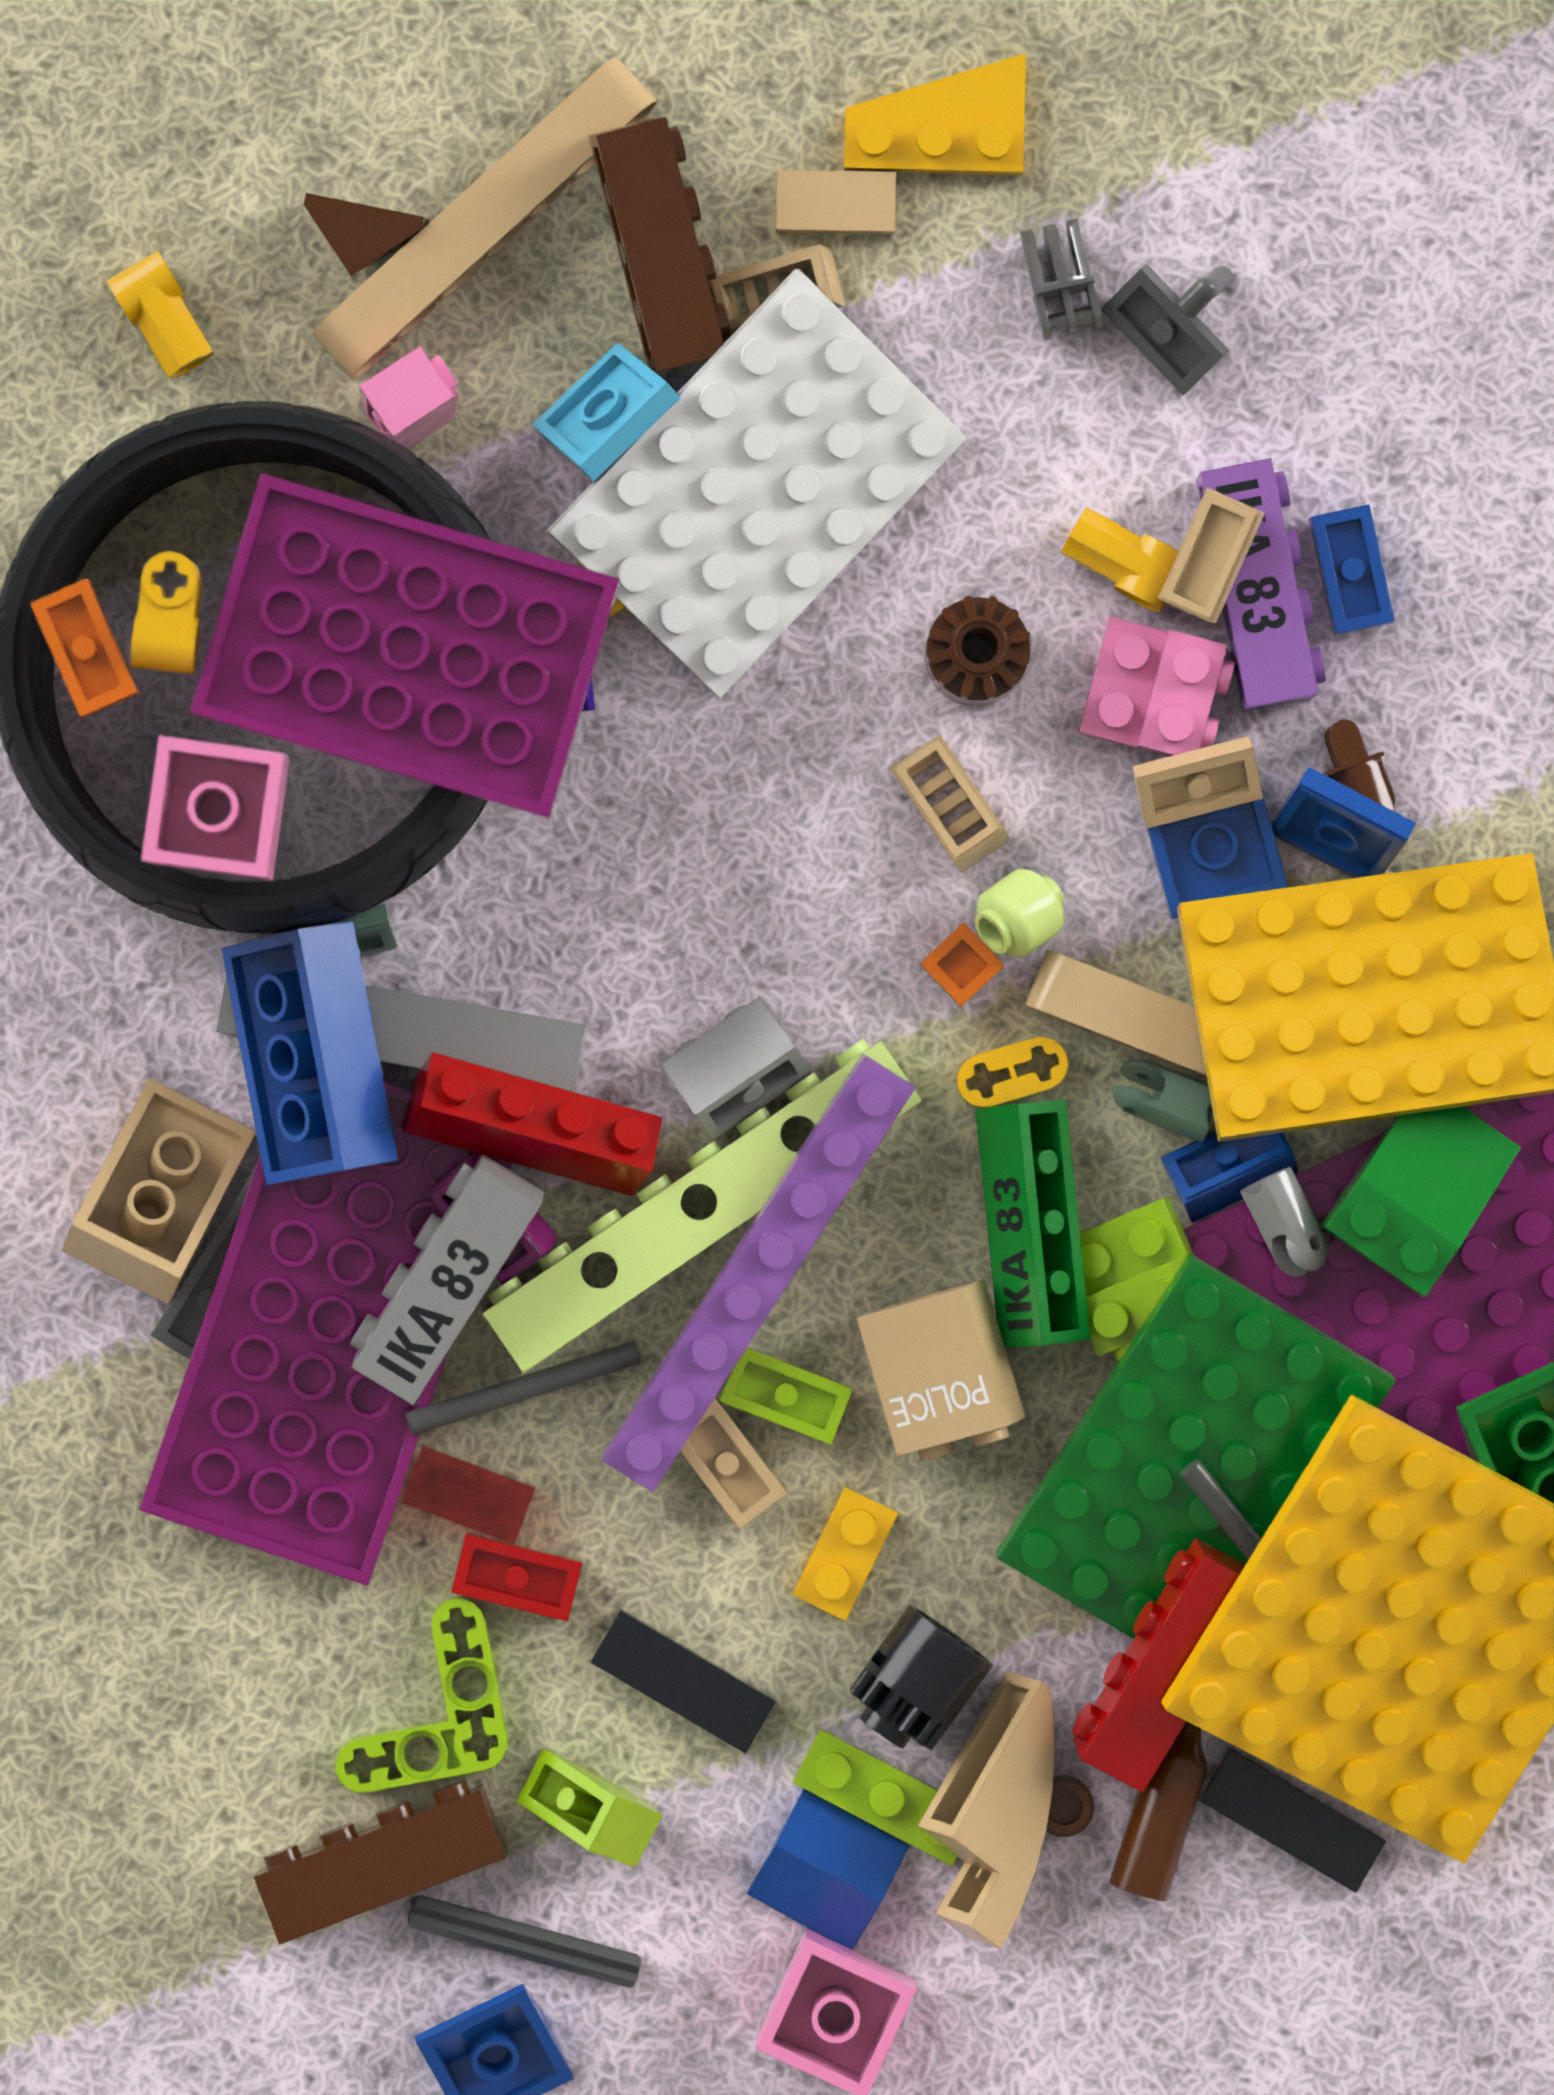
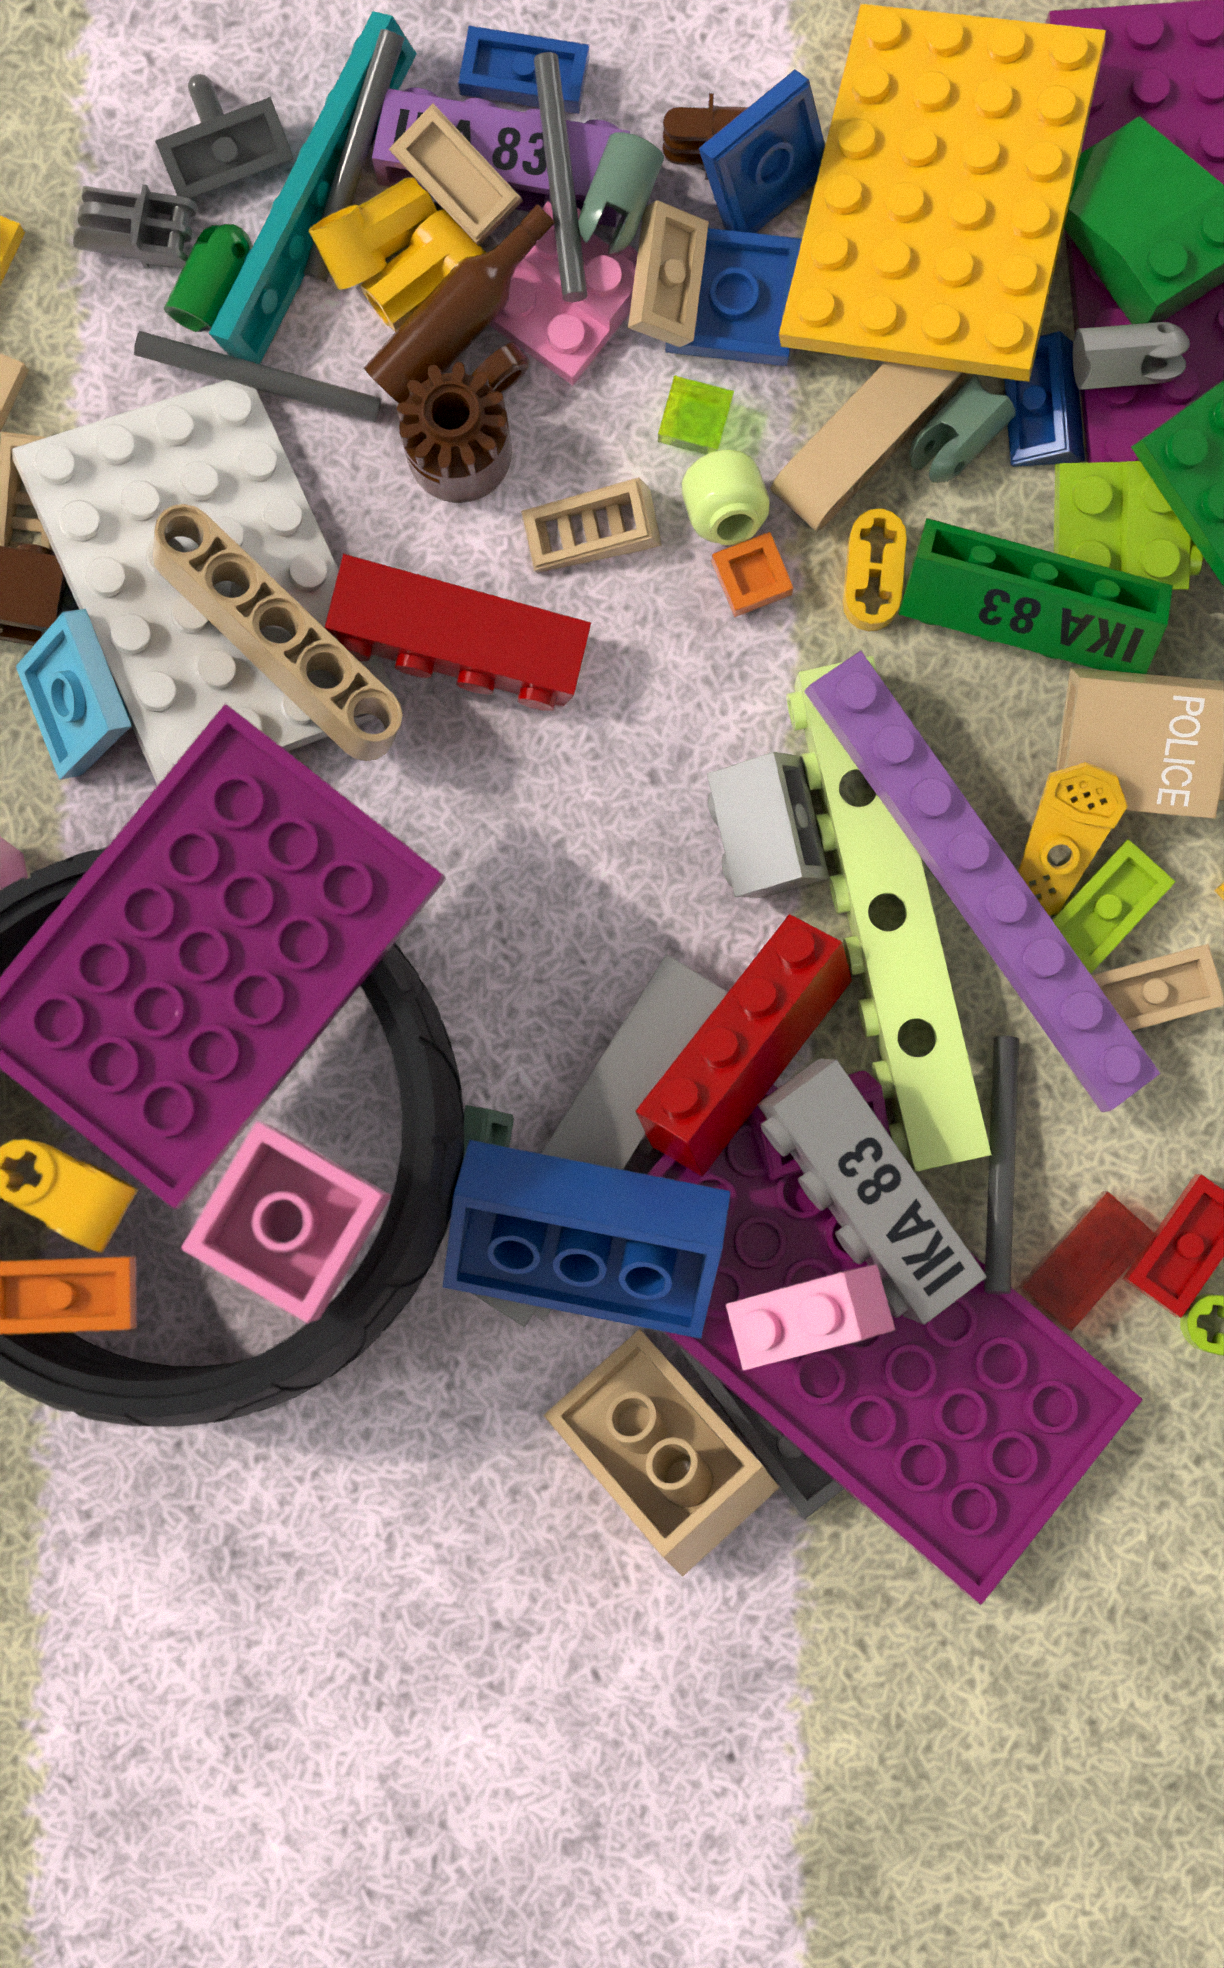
camera: 60 degrees left, 5 degrees down
(318, 1268) = (810, 1317): none -> bright pink brick
(721, 541) = (266, 605): none -> tan beam
(797, 725) = (456, 633): none -> red brick
(840, 1333) = (1070, 824): none -> yellow piece
(966, 448) = (257, 376): none -> dark grey bar
(1041, 368) = (208, 276): none -> green piece
(1056, 664) = (504, 367): none -> reddish brown tile
(1083, 603) = (455, 311): none -> reddish brown piece
(1087, 856) = (695, 416): none -> clear neon green plate
(1125, 489) = (363, 236): none -> yellow piece
(1158, 428) = (281, 251): none -> teal plate
(1201, 451) = (359, 137): none -> dark grey bar
(1246, 650) = (560, 177): none -> dark grey bar
(1253, 709) = (623, 183): none -> sand green piece

